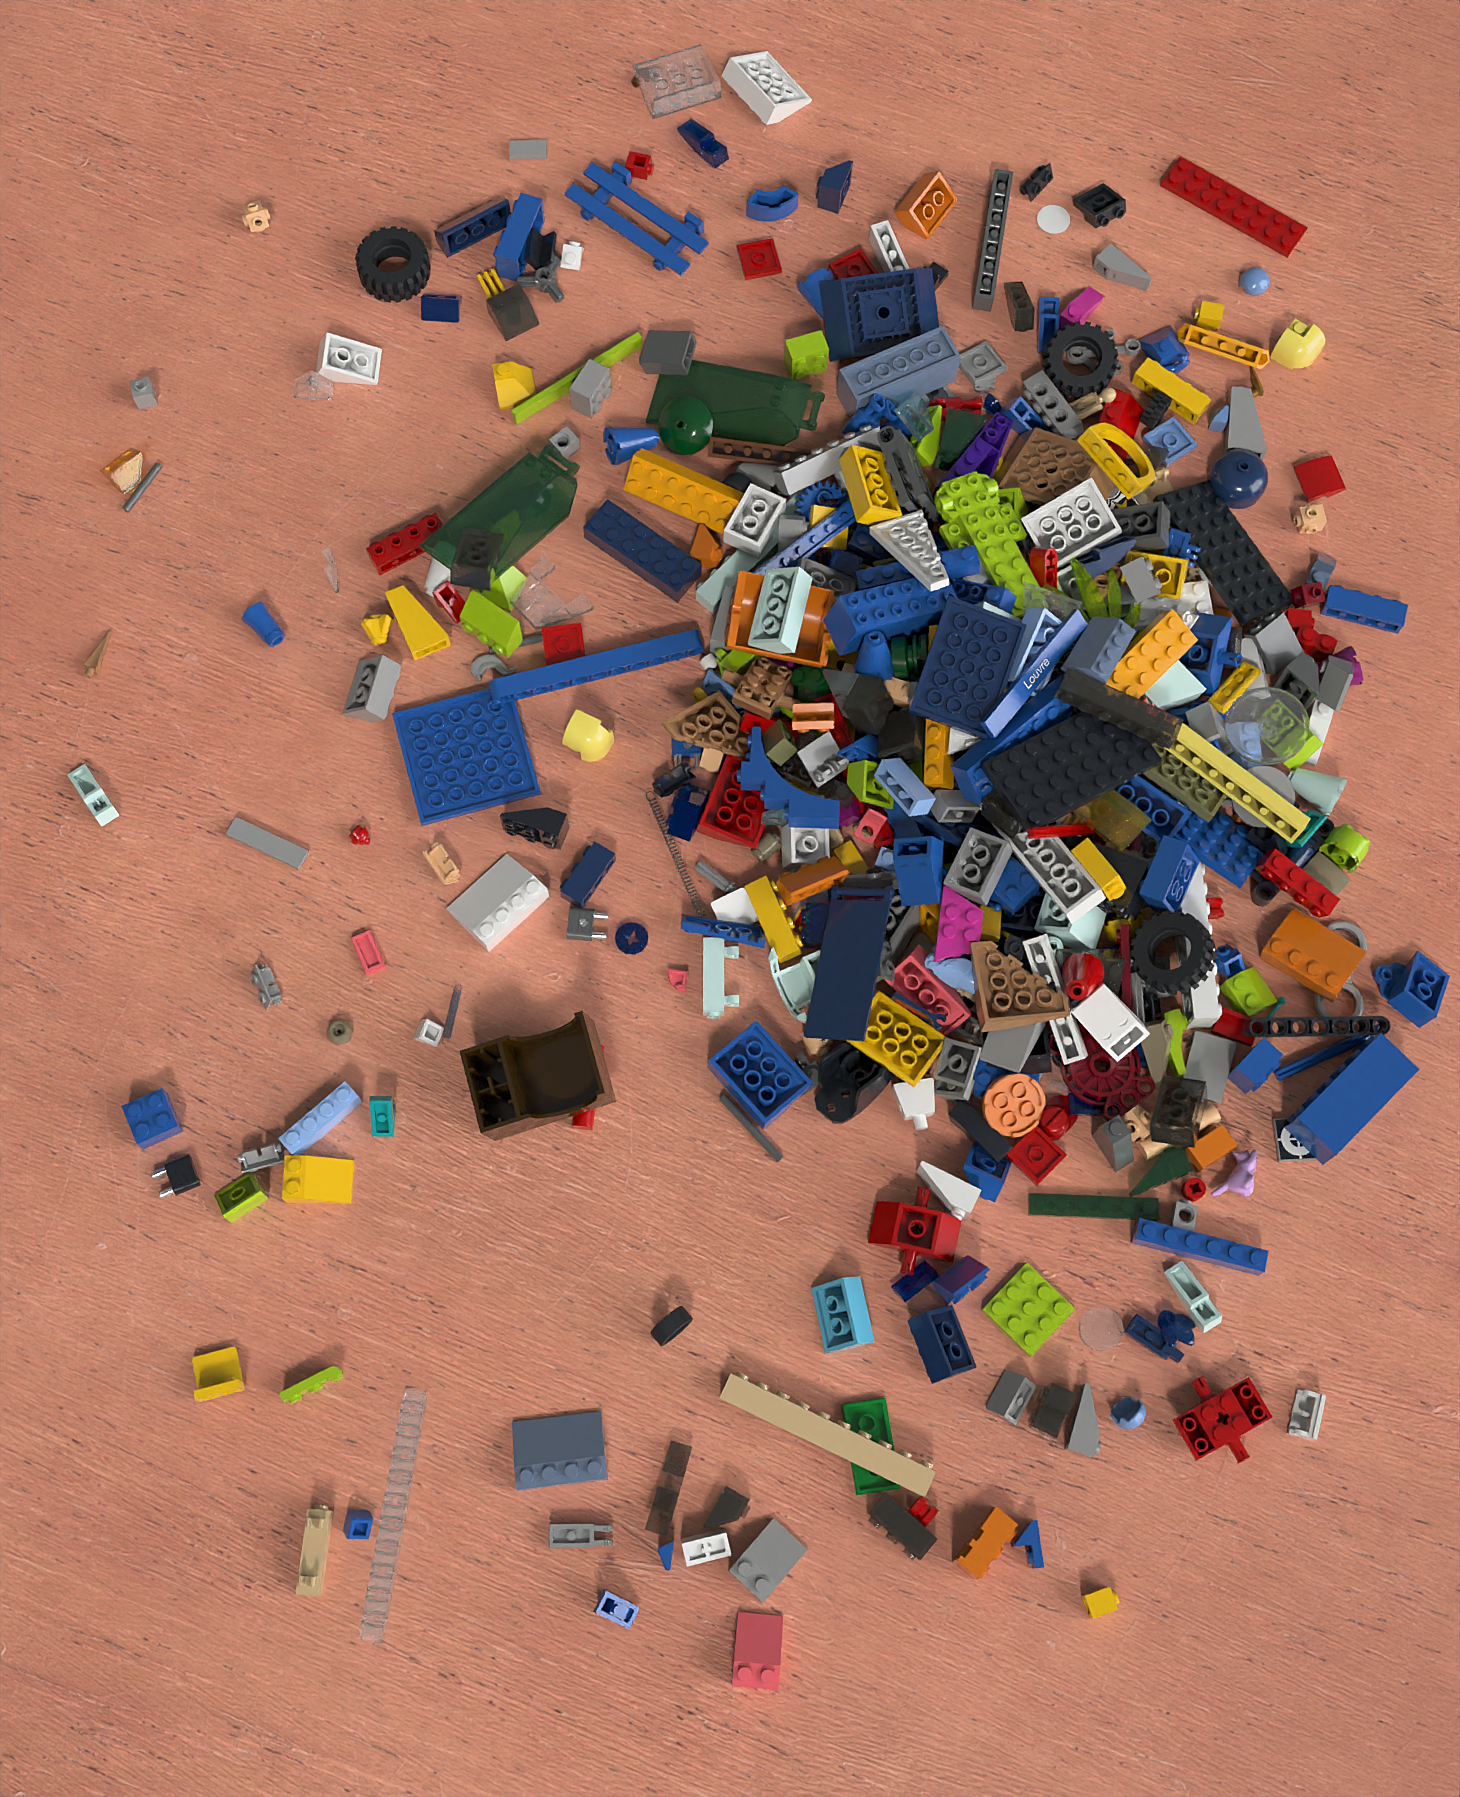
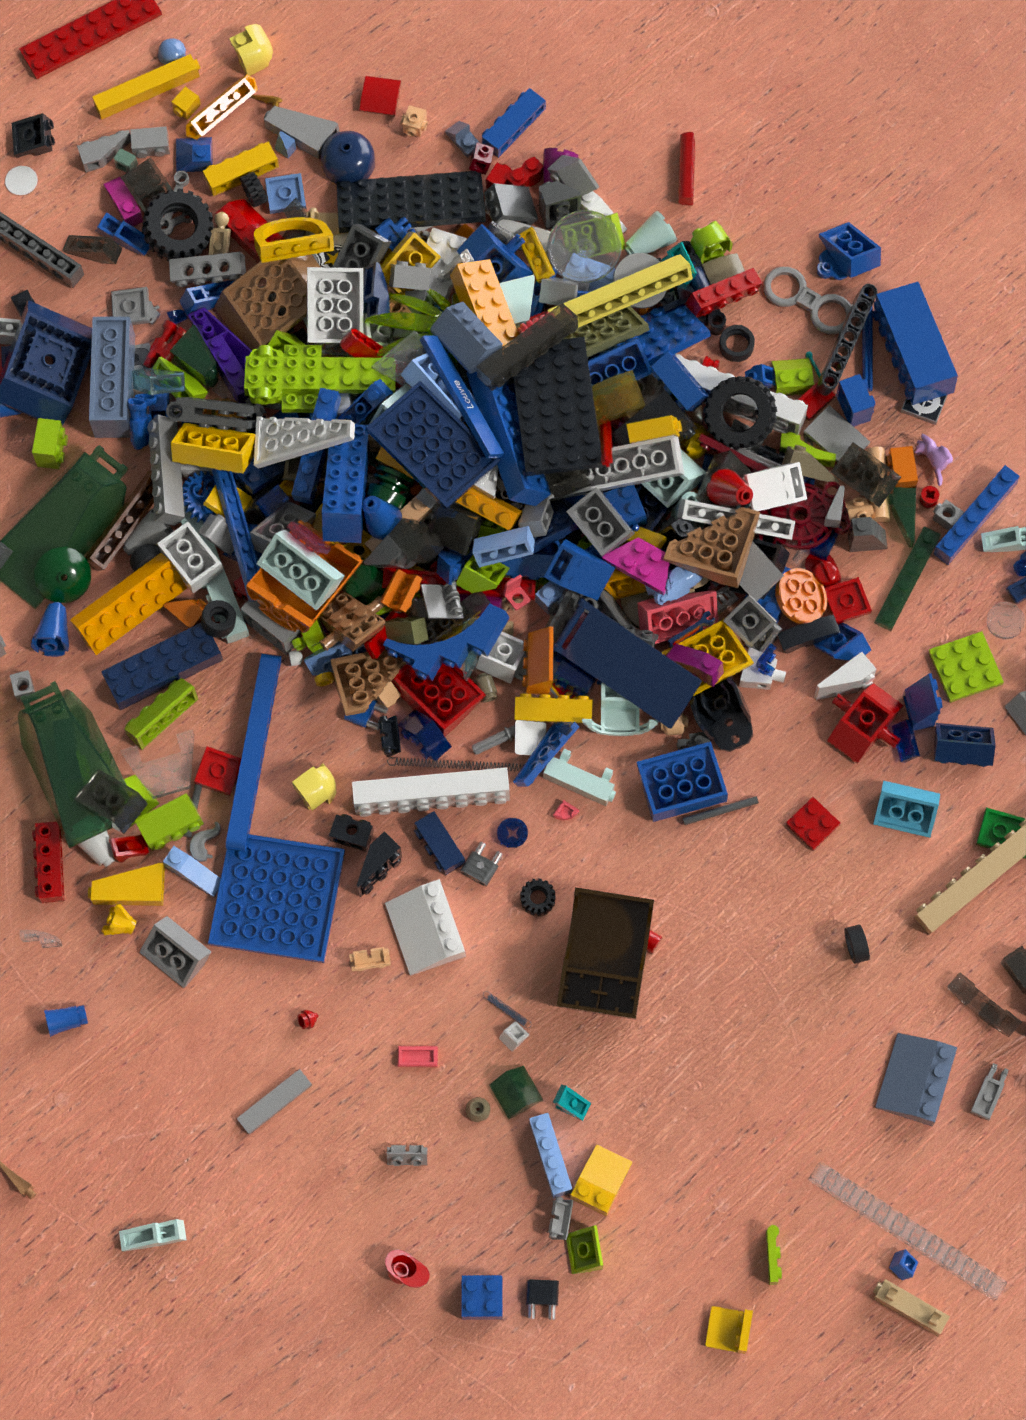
camera: 60 degrees left, 0 degrees up
(149, 1034) = (406, 1269): none -> red piece
(373, 1060) = (515, 1091): none -> clear green slope
(456, 666) = (192, 871): none -> light blue slope
(557, 779) = (359, 840): none -> black brick
(568, 982) = (533, 886): none -> black tyre
(594, 571) = (161, 713): none -> lime slope
(633, 842) = (431, 791): none -> white brick
(715, 564) = (222, 608): none -> black tyre
(782, 1226) = (813, 823): none -> red plate
(815, 602) = (312, 541): none -> clear pink plate
(850, 857) = (528, 624): yellow tile -> none
(883, 1030) = (698, 663): none -> magenta slope
(927, 1097) = (767, 657): none -> clear blue bracket
(1109, 314) = (145, 182): none -> clear smoke brick
(1118, 1097) = (834, 513): none -> light grey slope
(1121, 292) = (125, 161): none -> sand green slope
(1152, 304) = (150, 142): none -> light grey brick
(1176, 368) = (219, 152): blue arm -> none
(1206, 275) = (146, 86): none -> yellow brick
(1259, 909) = (736, 330): none -> black tyre
(1312, 954) = (785, 312): orange slope -> none
(1412, 792) = (686, 169): none -> red brick

